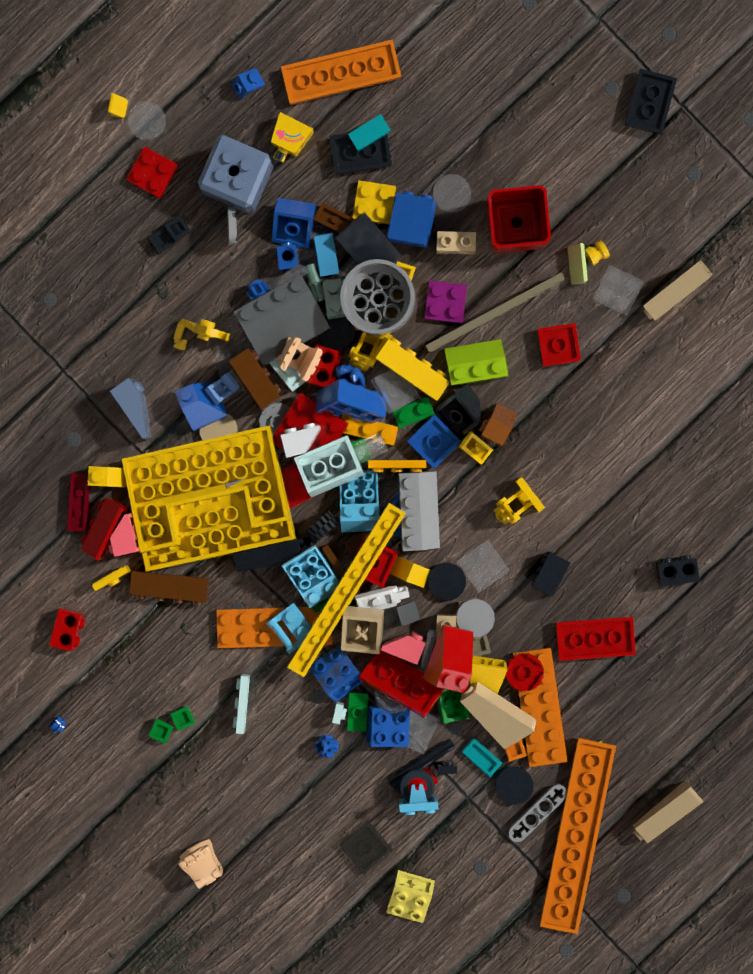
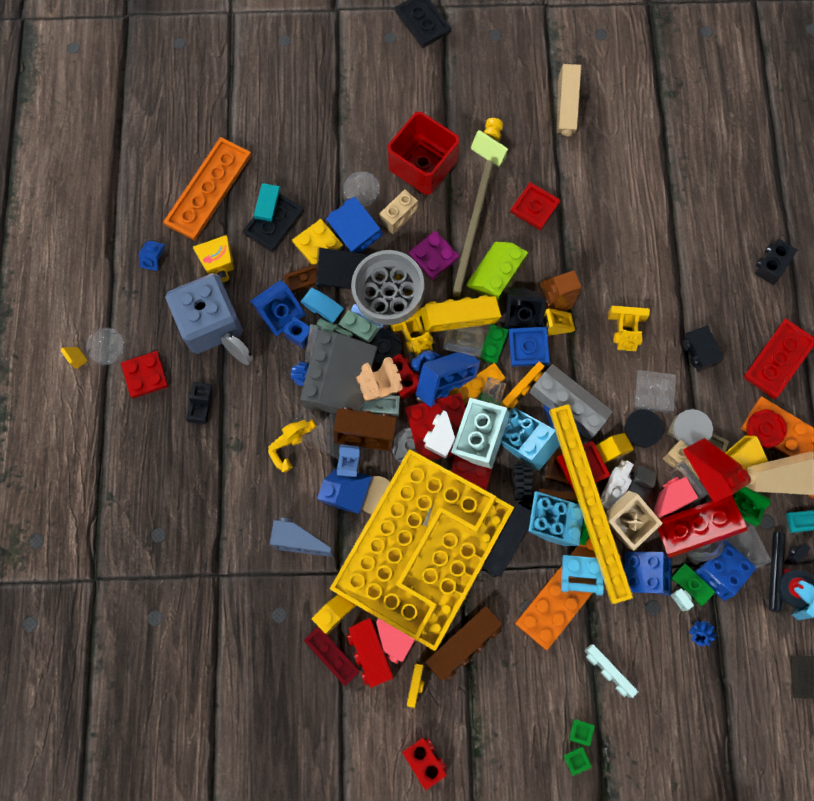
camera: 45 degrees left, 15 degrees down
(618, 290) = (531, 140): clear plate -> none

